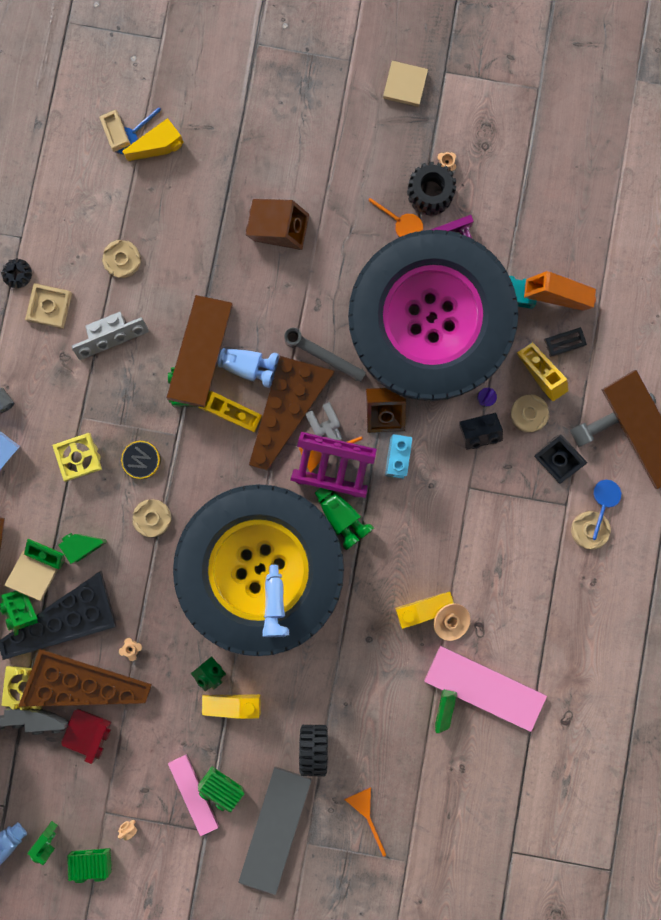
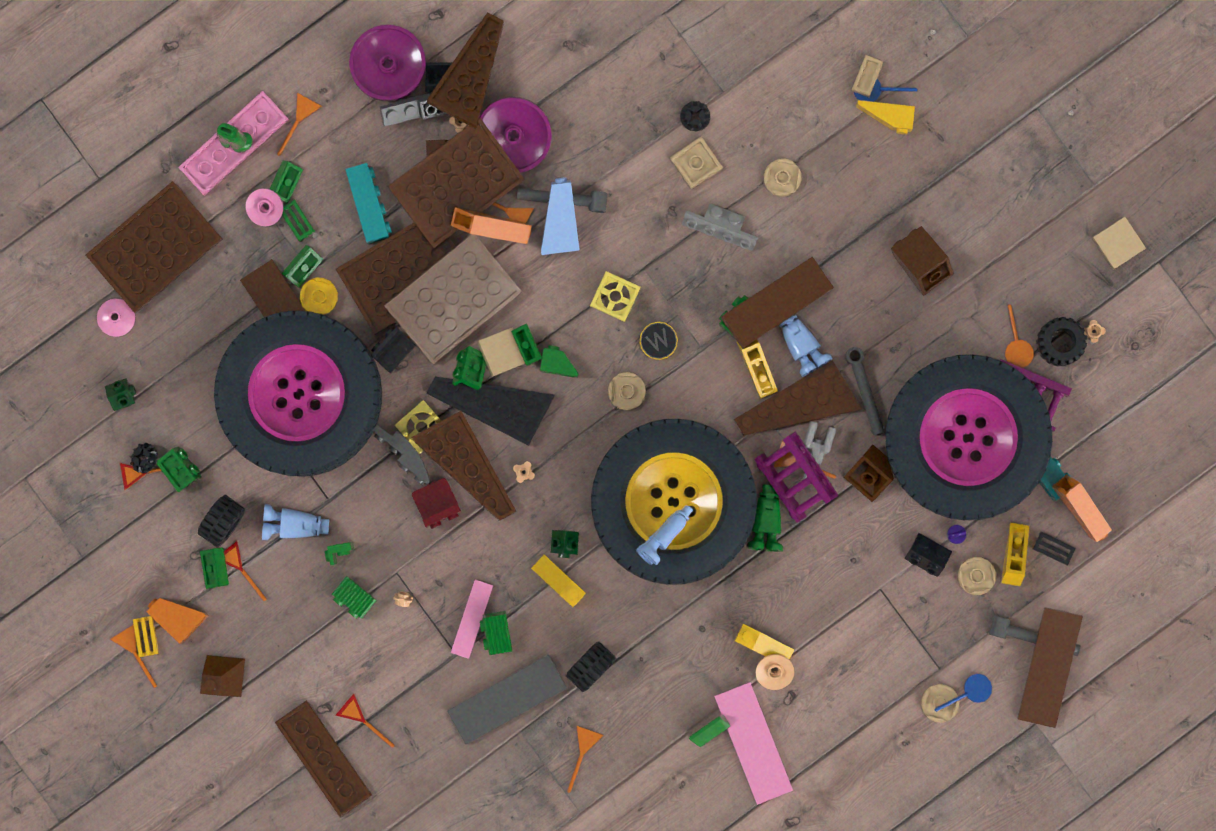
camera: 45 degrees right, 0 degrees up
(398, 456) = (848, 515): medium azure panel -> none
(560, 458) = (966, 629): black slope -> none

